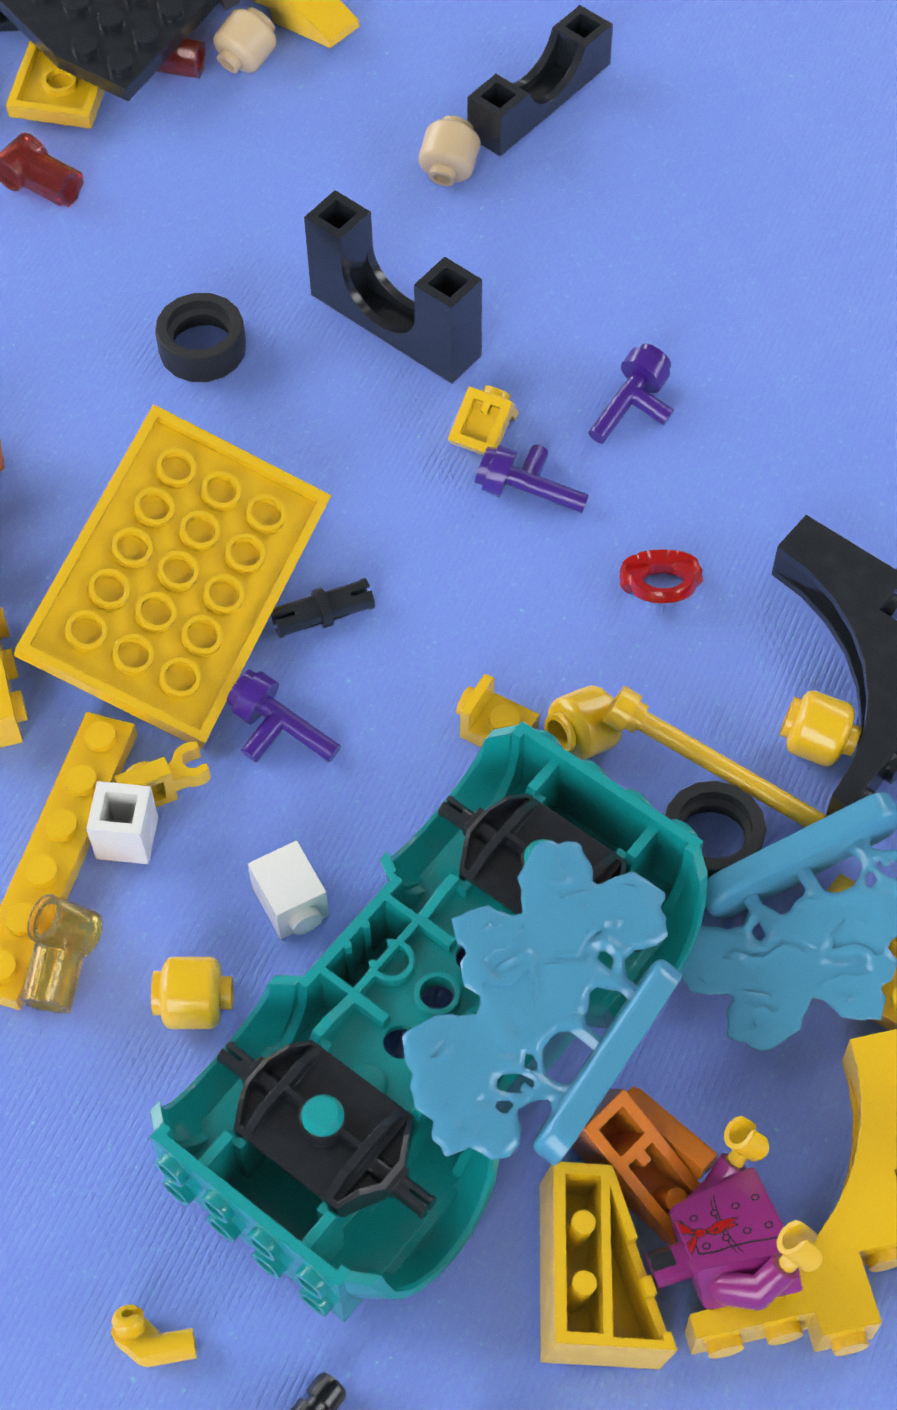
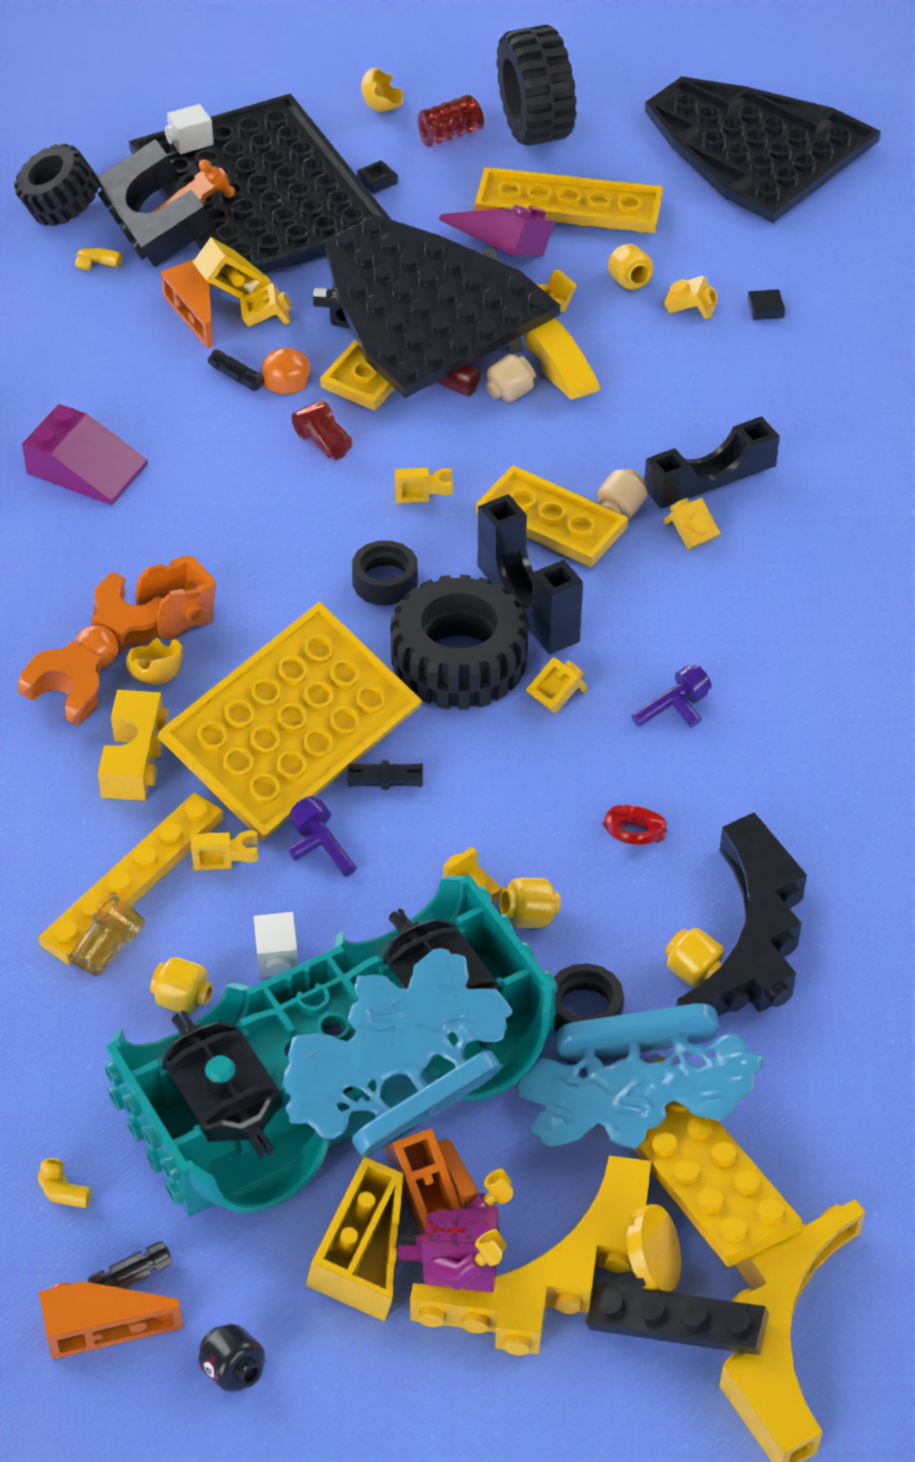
camera: 20 degrees right, 10 degrees down
(122, 822) = (184, 866): white brick -> none
(191, 208) = (417, 484): none -> yellow plate
(335, 355) = (459, 674): none -> black tyre
(405, 204) = (559, 516): none -> yellow plate
(498, 469) = (551, 720): dark purple piece -> none
(549, 162) = (692, 522): none -> yellow bracket
(631, 714) = (557, 900): yellow piece -> none

